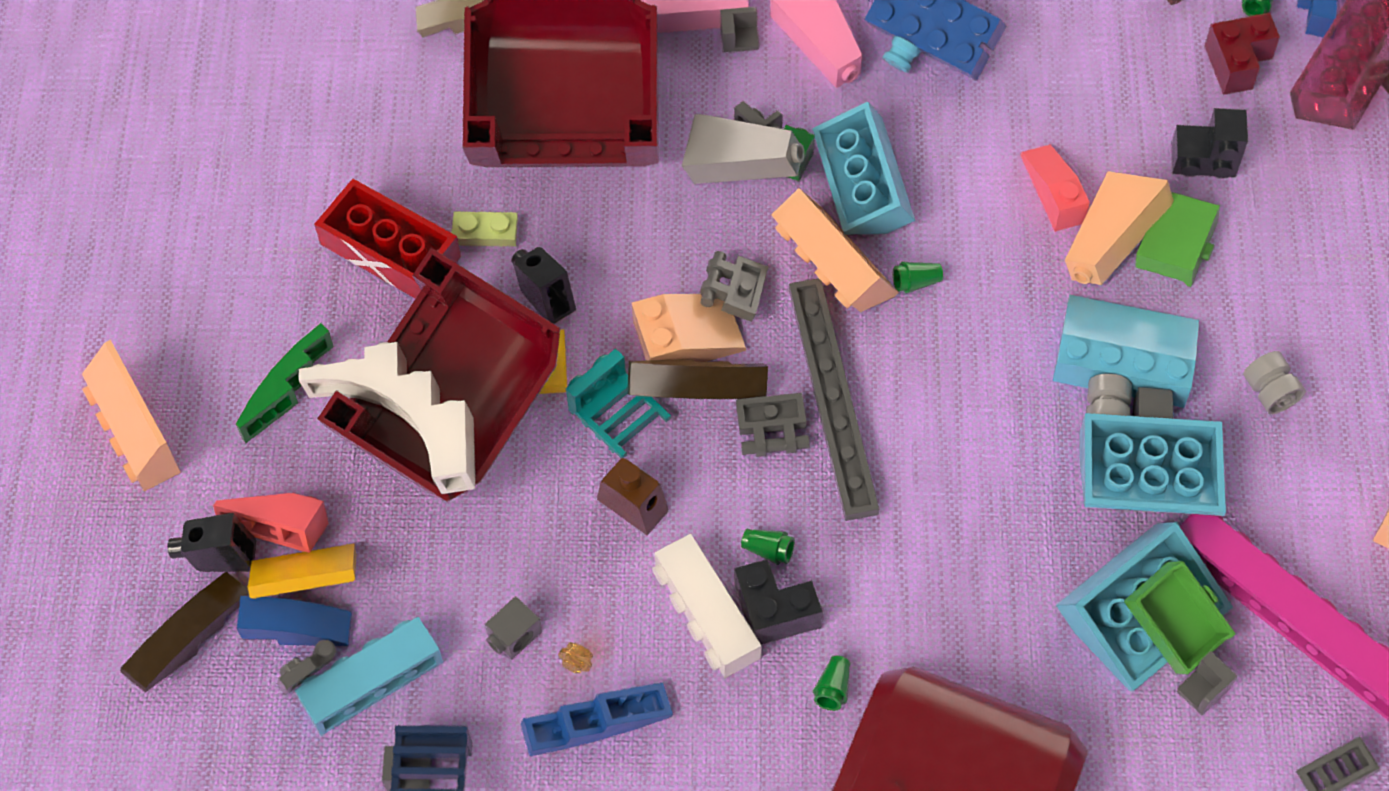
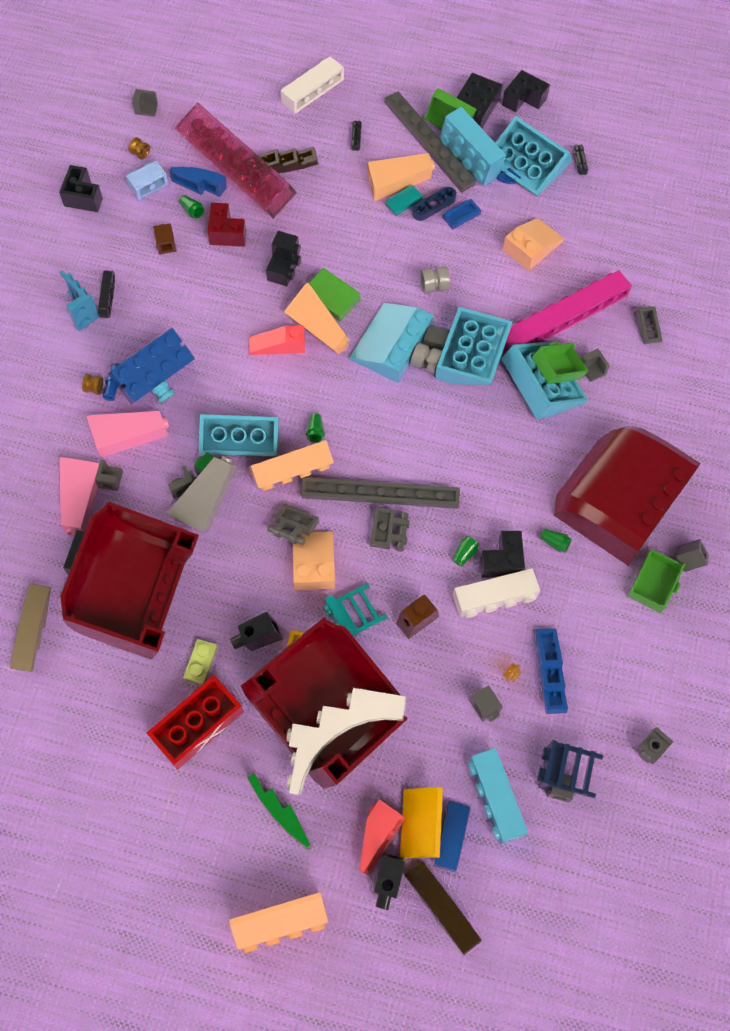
camera: 80 degrees left, 5 degrees up
(297, 671) = (492, 834): dark grey plate -> none
(697, 379) = (352, 563): dark brown slope -> none

